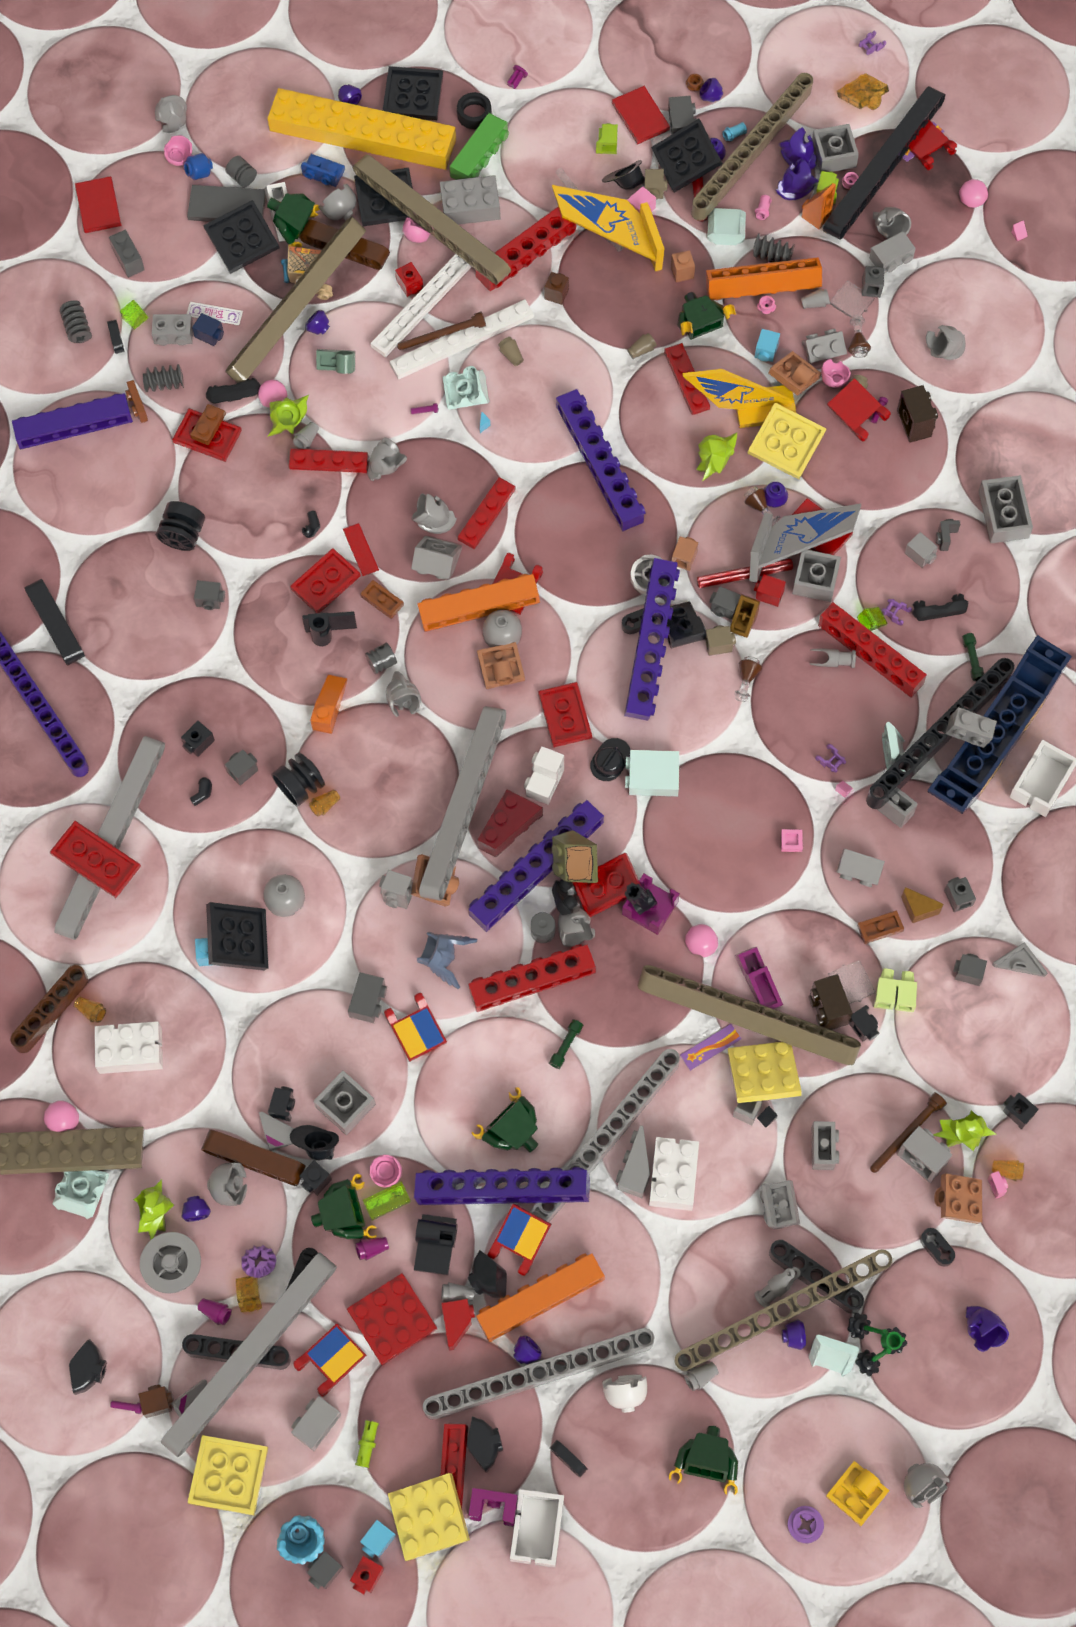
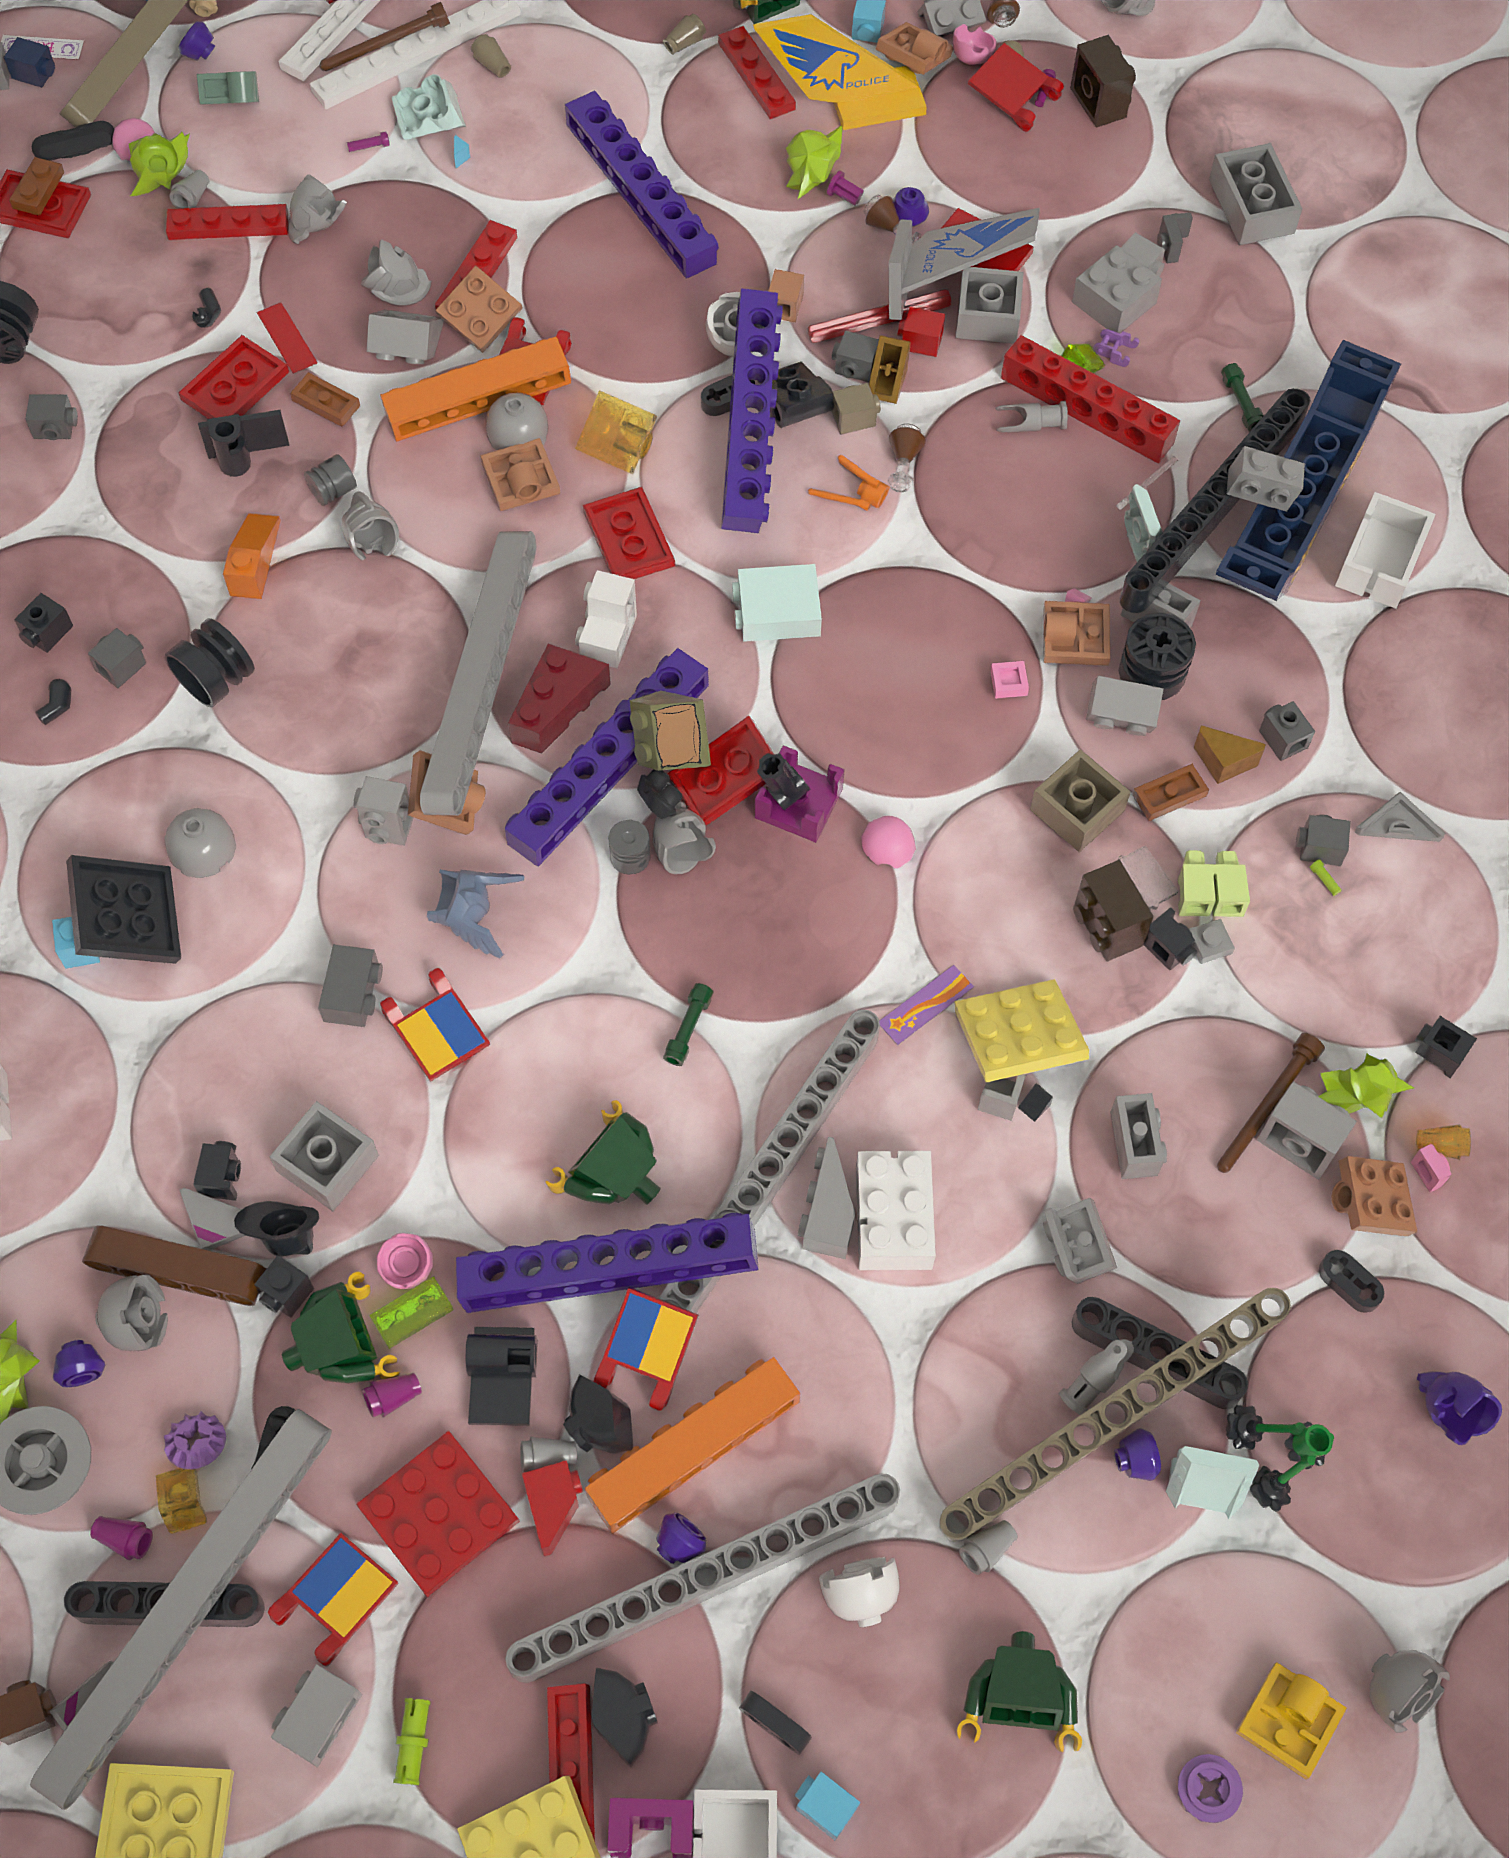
camera: 10 degrees left, 5 degrees down
(322, 804) = (255, 697): clear yellow cone -> none
(485, 544) = (479, 309): none -> nougat plate
(525, 987) = (610, 941): red brick -> none
(564, 643) = (617, 432): none -> clear yellow plate
(591, 1506) = (826, 1804): none -> medium azure brick
(610, 759) = (706, 593): black piece -> none
(722, 699) = (871, 490): none -> orange plant
(734, 476) = (844, 189): none -> magenta piece
(749, 1015) = (983, 945): dark tan beam -> none
(758, 978) = (989, 890): magenta slope -> none
(787, 441) = (916, 135): light yellow plate -> none
(822, 928) = (1079, 800): none -> dark tan brick
(827, 763) = (1047, 564): medium lavender piece -> none
(838, 813) = (1076, 633): none -> nougat plate
(885, 847) = (1158, 653): none -> black wheel
(890, 1026) = (1211, 941): none -> light grey plate
(900, 714) = (1150, 480): none -> clear piece
(902, 571) = (1116, 290): none -> light grey brick
(957, 607) = (1203, 331): black piece -> none
(969, 995) = (1318, 868): none -> lime piece

